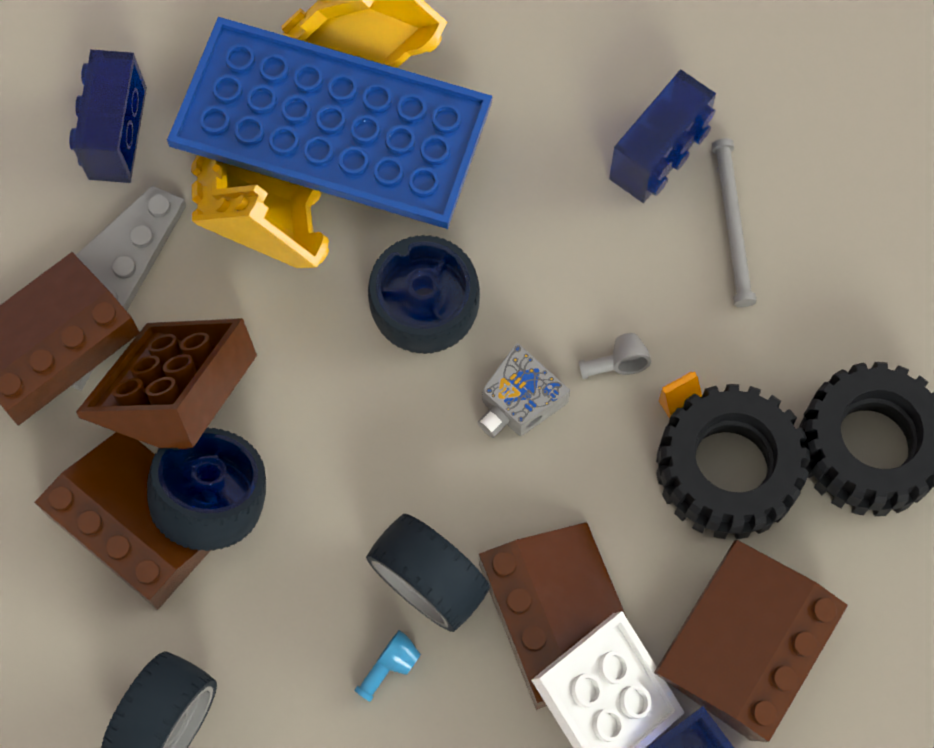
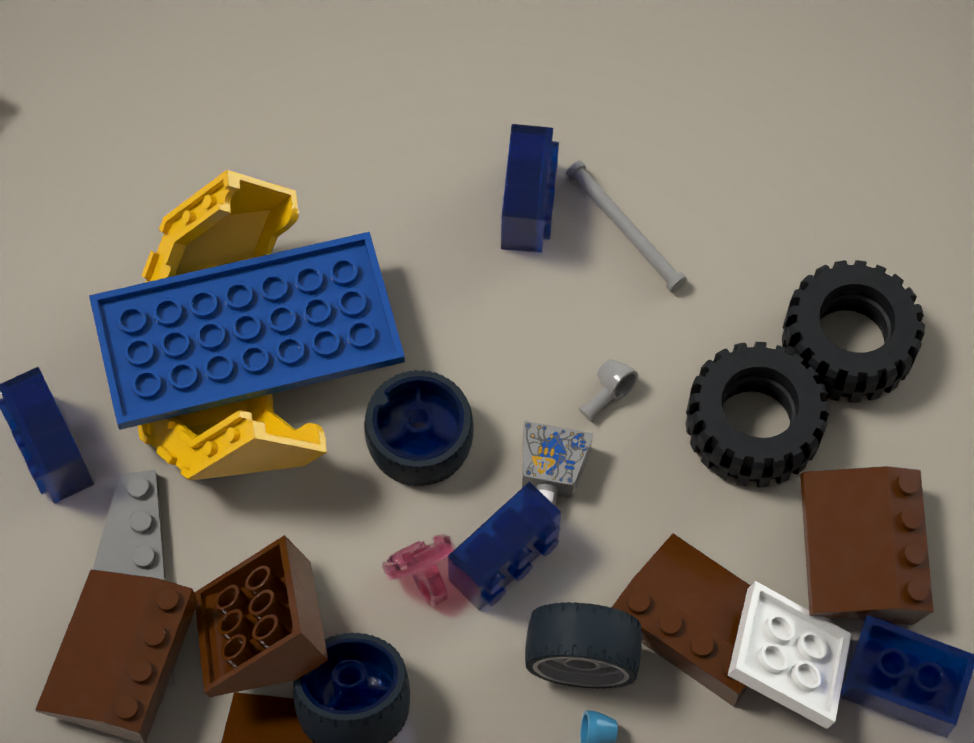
camera: 35 degrees left, 5 degrees down
(343, 409) = (421, 562): none -> clear pink tile
(424, 443) = (505, 547): none -> clear blue brick
(676, 392) = (678, 388): light orange slope -> none

